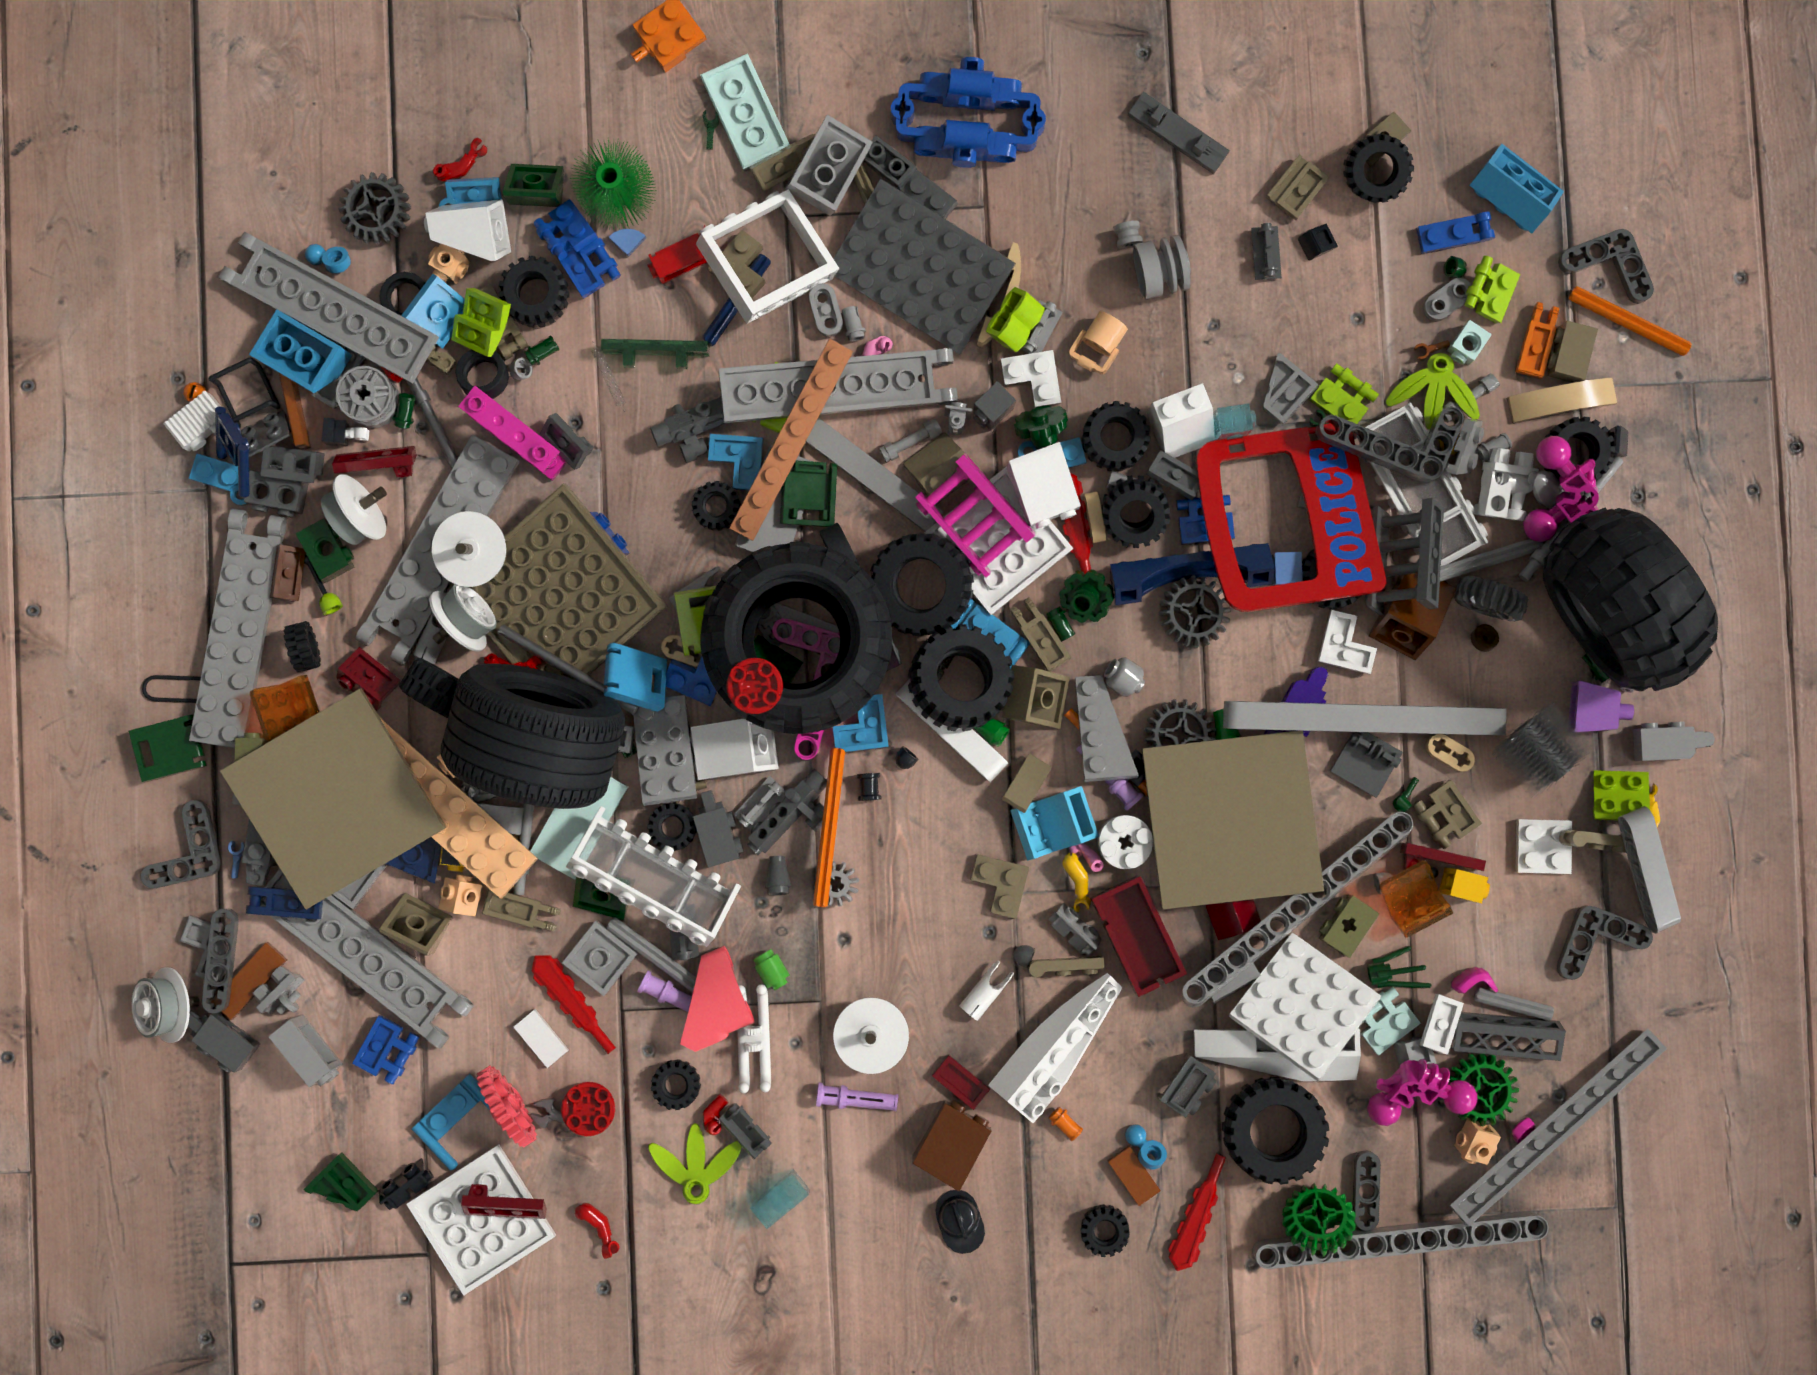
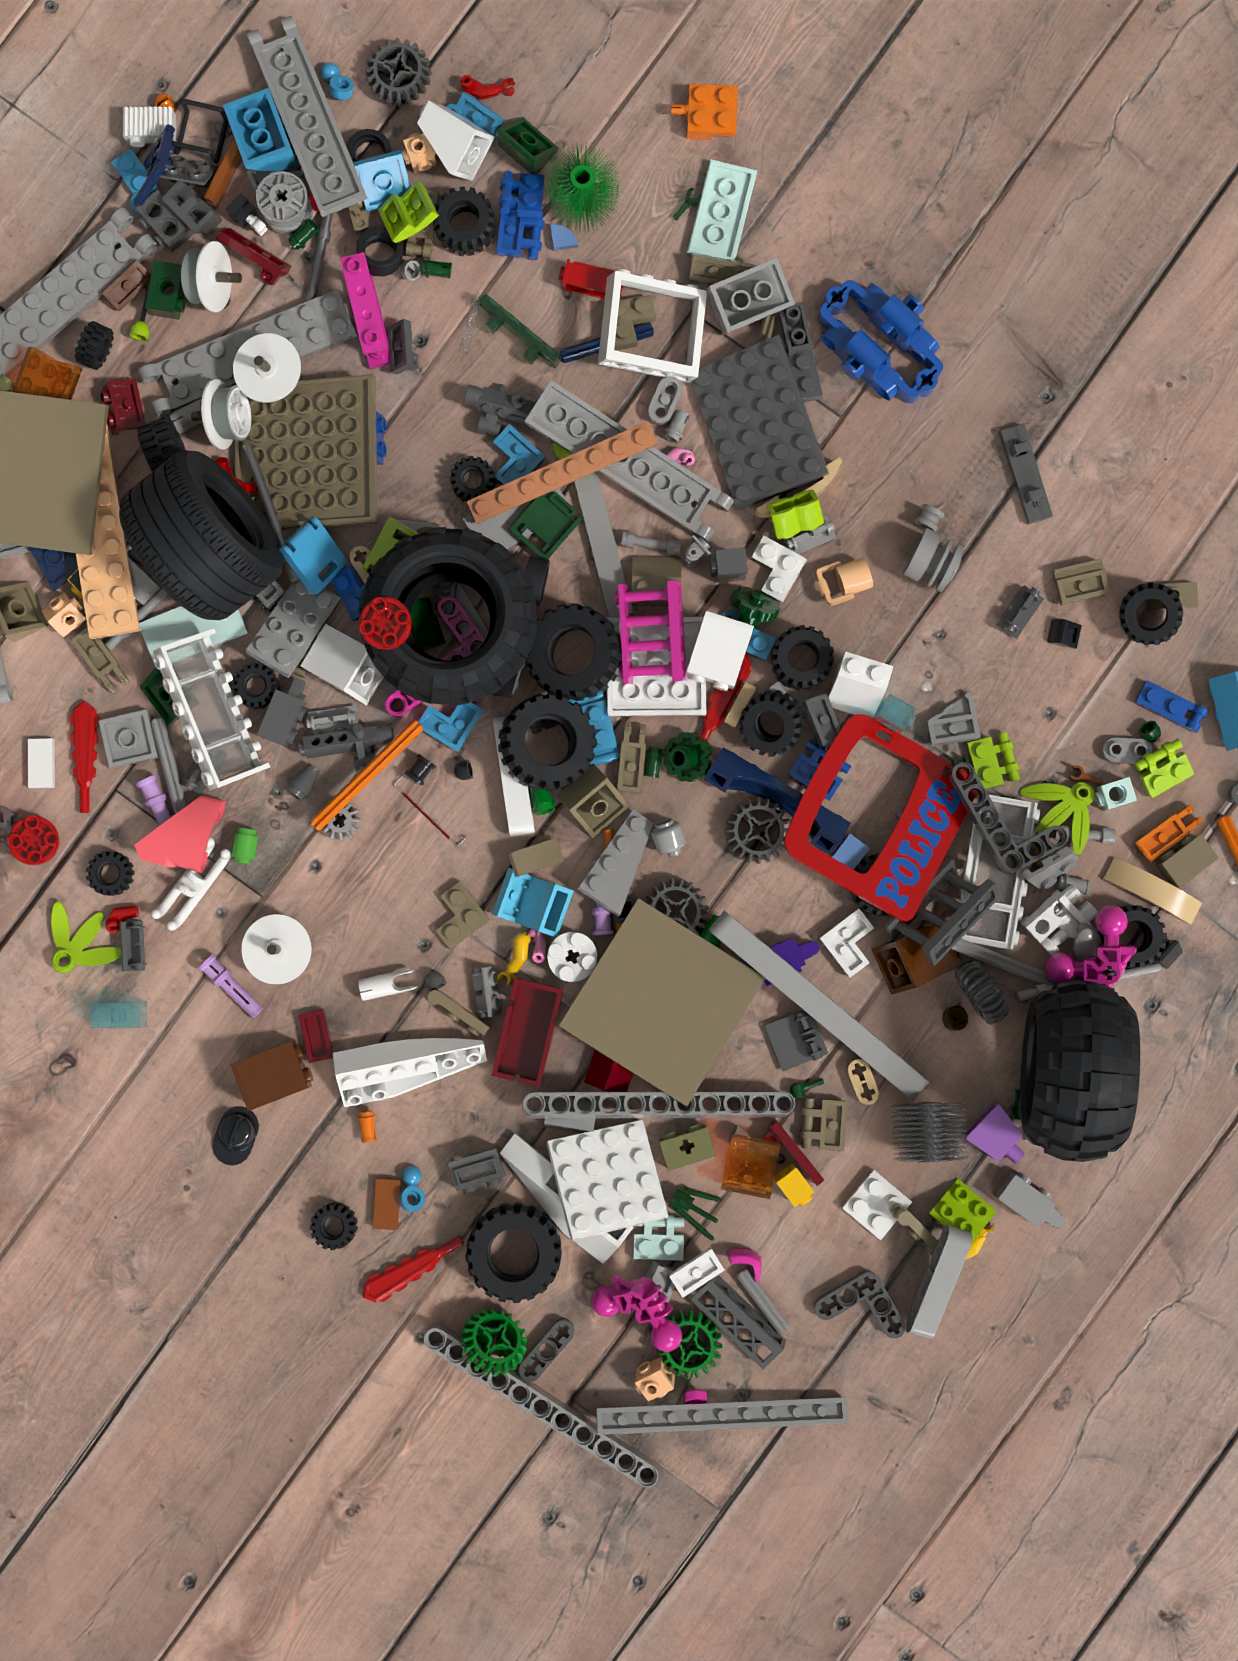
camera: 40 degrees right, 0 degrees up
(900, 821) = (425, 814): none -> dark red piece

